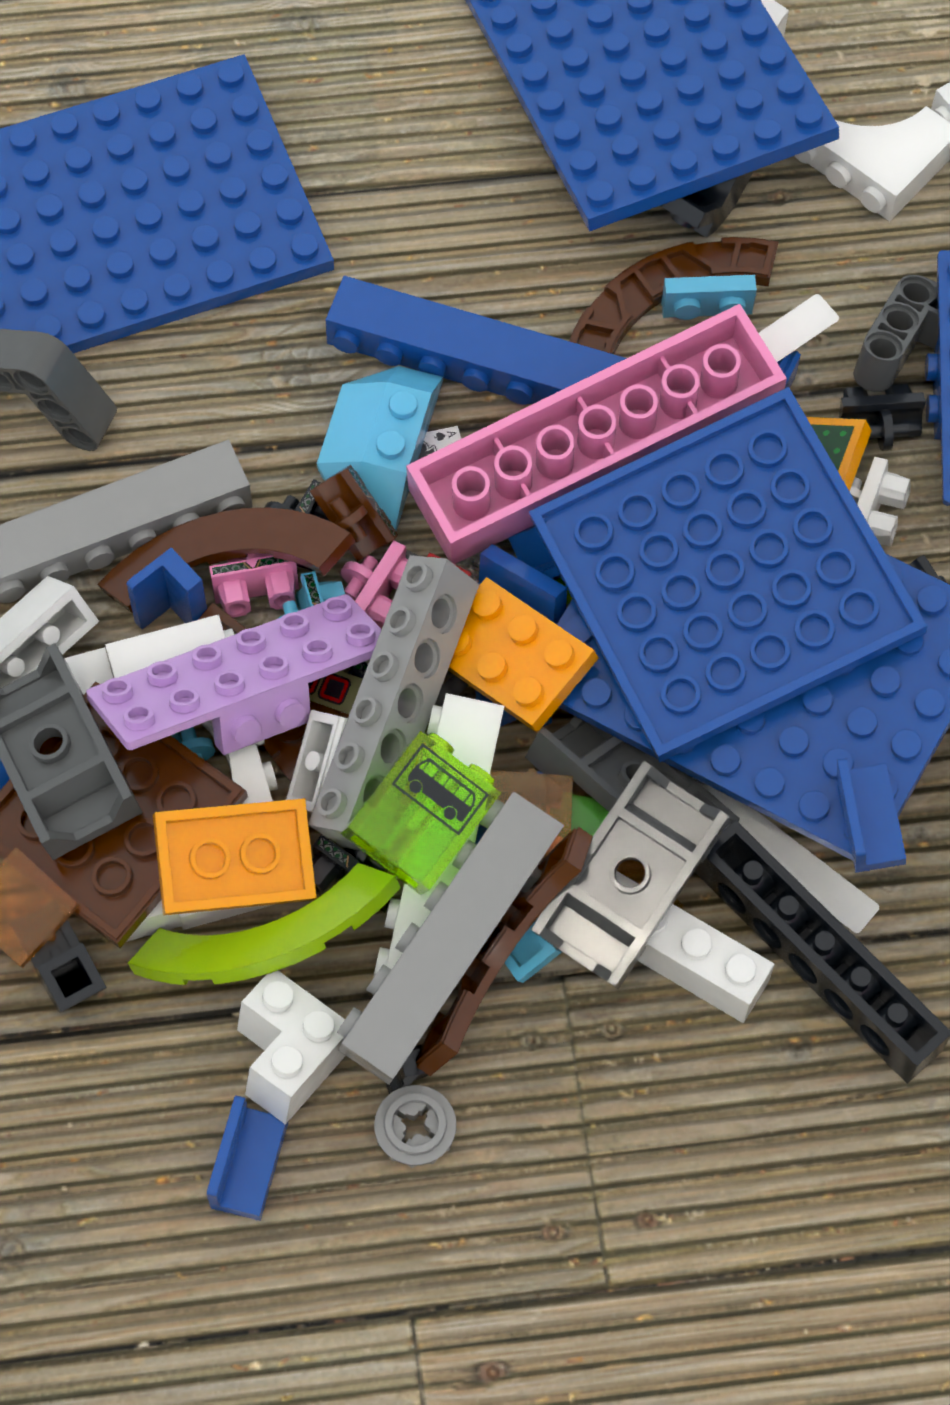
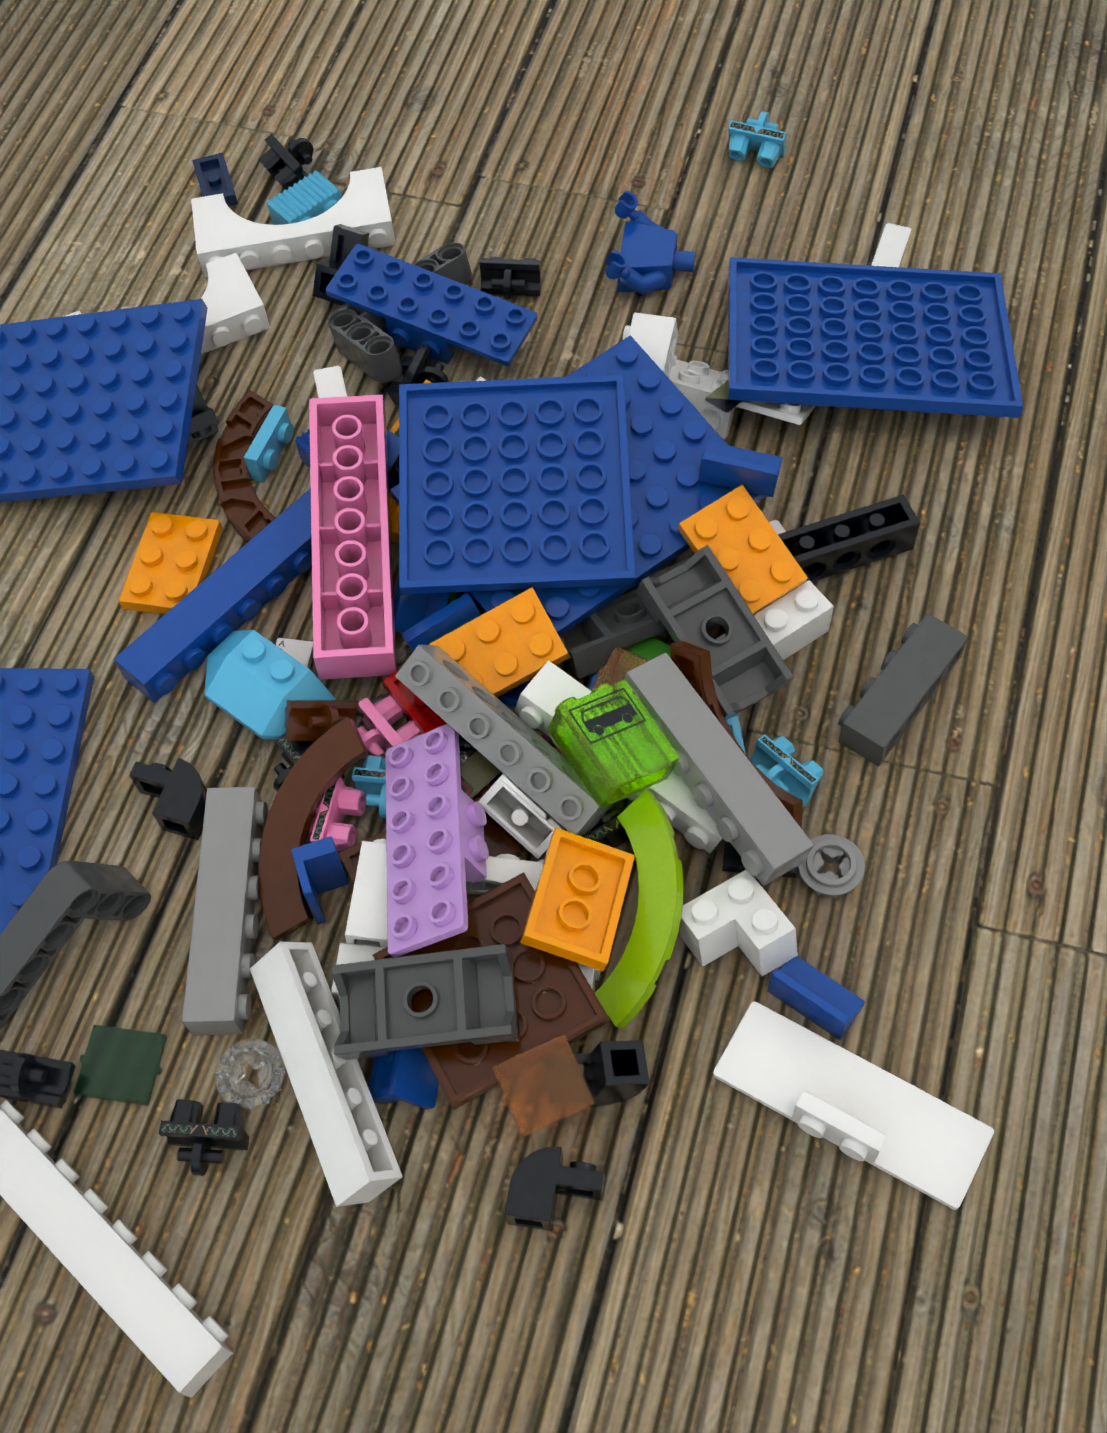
camera: 60 degrees left, 5 degrees down
(134, 1243) = (854, 1105): none -> white bracket
(219, 418) = (179, 794): none -> black brick
(507, 272) = (169, 561): none -> light orange plate
(521, 1012) = (777, 764): none -> medium azure hips
(686, 1130) = (901, 689): none -> dark grey brick
(762, 867) = (745, 548): none -> light orange plate

